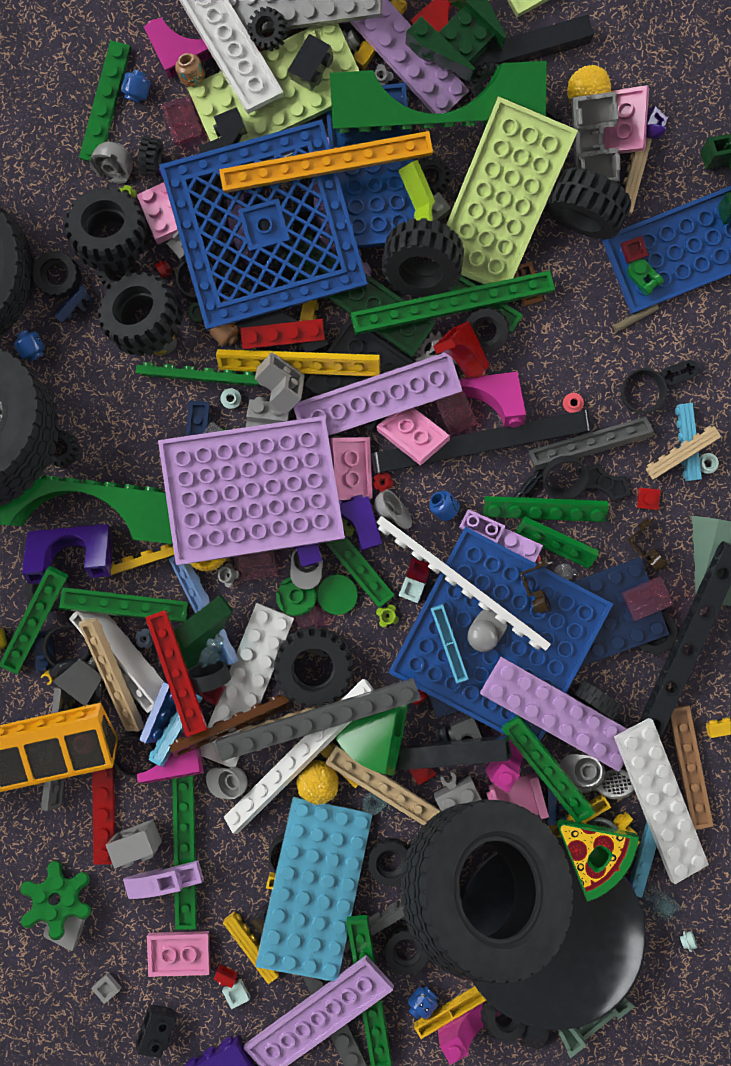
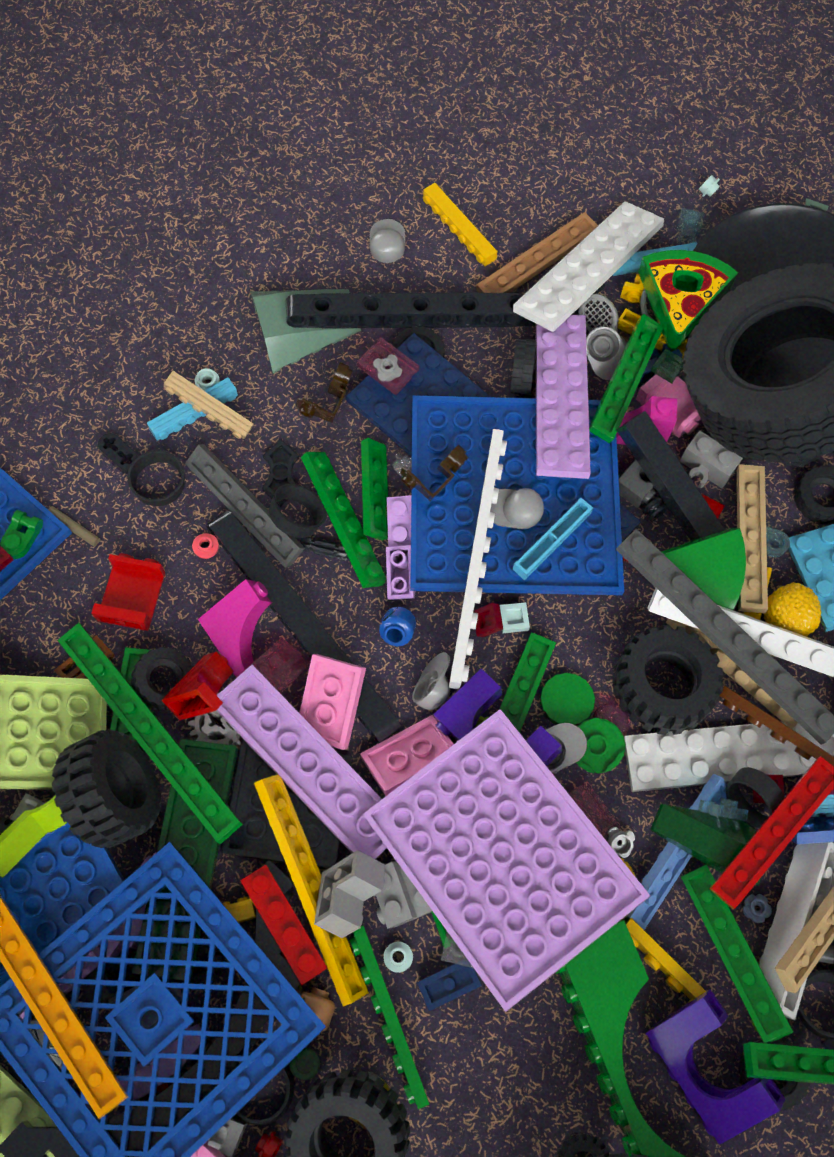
camera: 125 degrees left, 20 degrees down
(381, 612) = (562, 624): lime plate -> none
(382, 487) = (413, 715): red plate -> none
(543, 807) = (668, 366): none -> clear green plate
(563, 336) = (130, 592): none -> red panel
(638, 590) = (387, 374): none -> light grey plate
(648, 498) = (276, 421): red plate -> none

